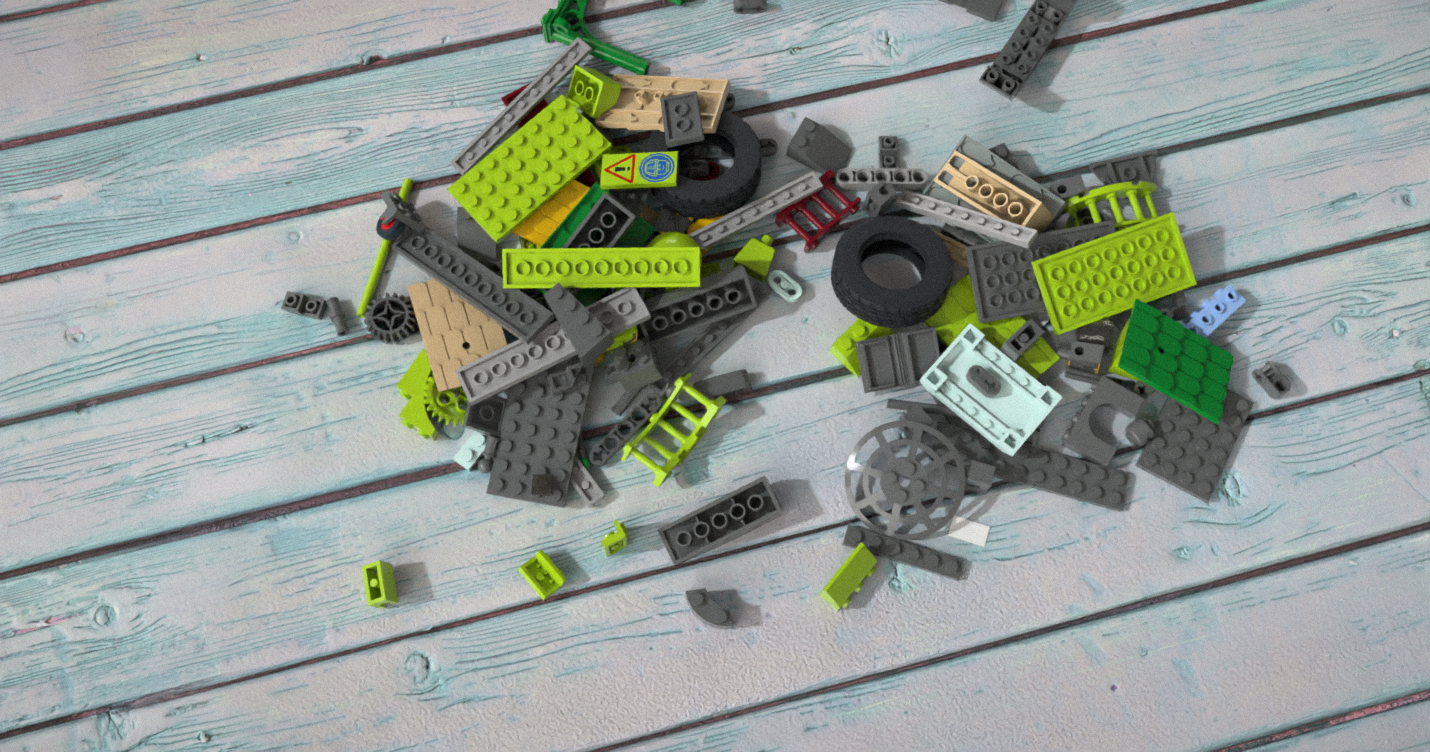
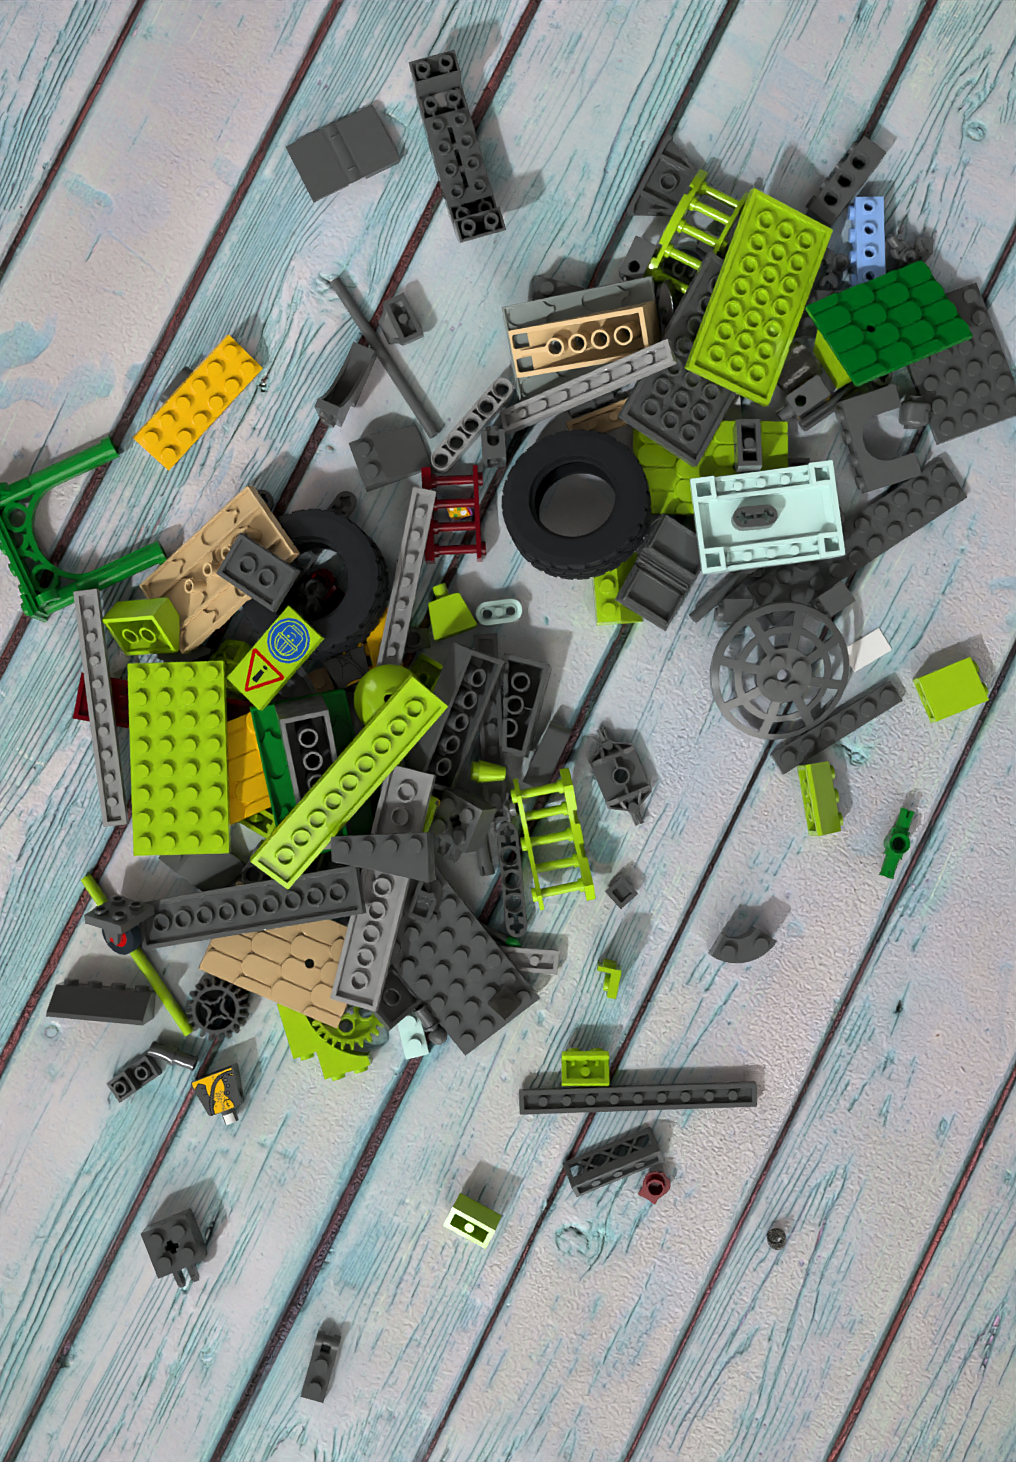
camera: 45 degrees left, 15 degrees up
(201, 570) = (320, 1367): none -> dark grey plate
(218, 422) = (172, 1259): none -> dark grey hinge
(337, 362) = (220, 1092): none -> torso
(338, 247) = (102, 1002): none -> dark grey slope
(491, 650) = (616, 1169): none -> dark grey fence
(500, 689) = (654, 1186): none -> dark red animal
(551, 628) = (637, 1097): none -> dark grey plate
(676, 504) = (621, 892): none -> dark grey plate
(680, 355) = (487, 772): none -> lime cone
(721, 521) = (673, 866): dark grey slope -> none
(723, 251) = (417, 639): none -> dark grey animal
(742, 343) = (523, 699): none -> dark grey wedge
(744, 456) = (626, 795): none -> dark grey plate
(751, 20) = (197, 402): none -> yellow plate
(823, 216) = (459, 514): none -> tile
(836, 91) = (346, 387): none -> dark grey arch
(873, 103) = (384, 357): none -> dark grey piece
(874, 650) = (901, 831): none -> green pin
(888, 151) = (450, 394): dark grey slope -> none
(903, 92) = (399, 321): none -> dark grey slope
(994, 604) = (951, 689): none -> lime brick
(1226, 341) = (905, 255): none -> dark grey piece
(1260, 274) = (869, 157): none -> dark grey brick
(1271, 380) = (966, 245): dark grey piece -> none

